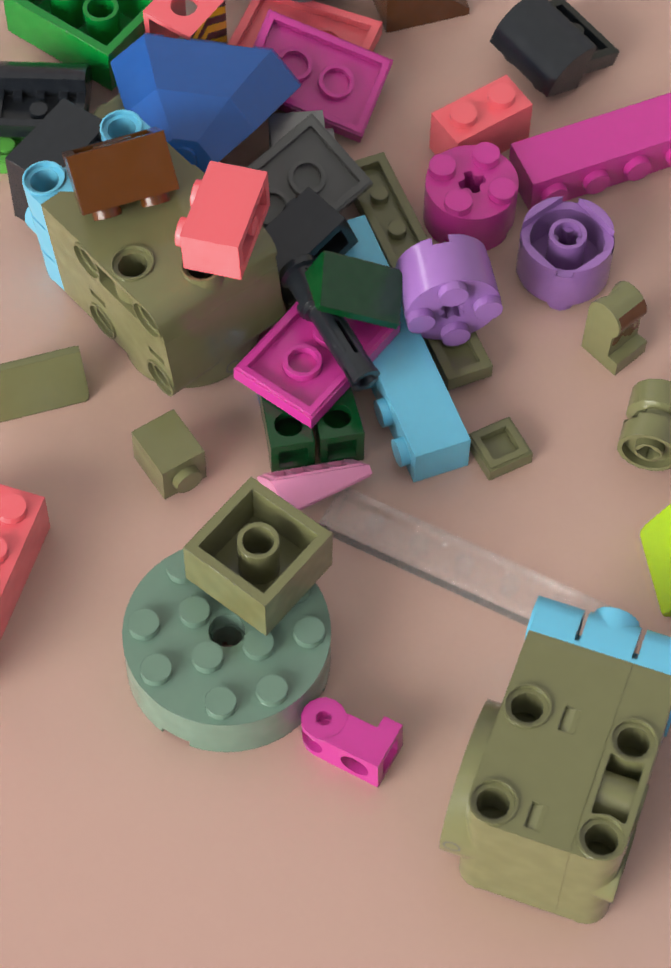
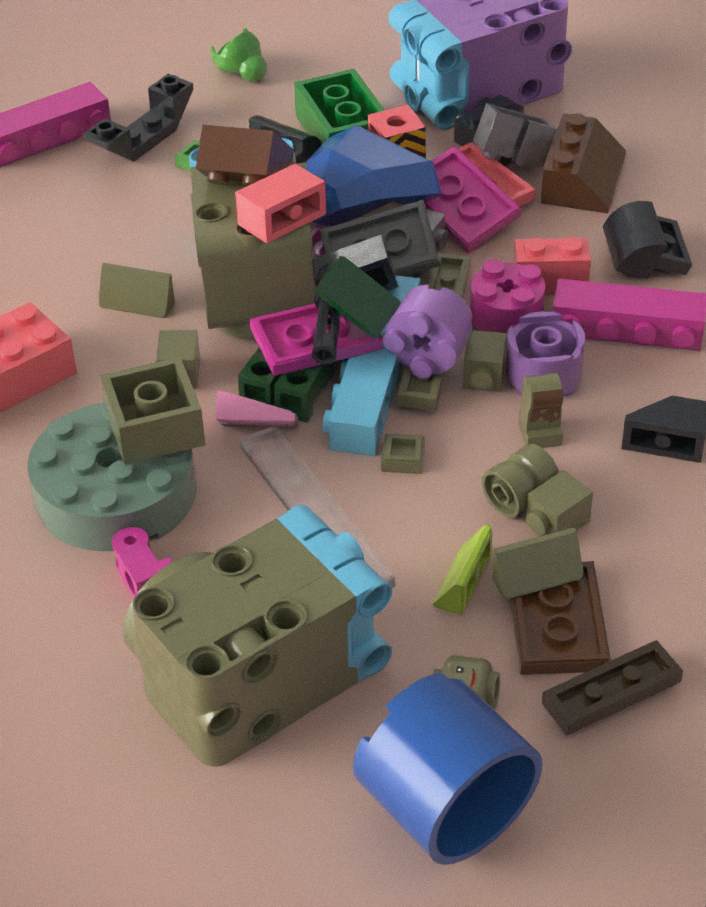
camera: 35 degrees right, 15 degrees down
(515, 287) = (485, 361): none -> olive brick

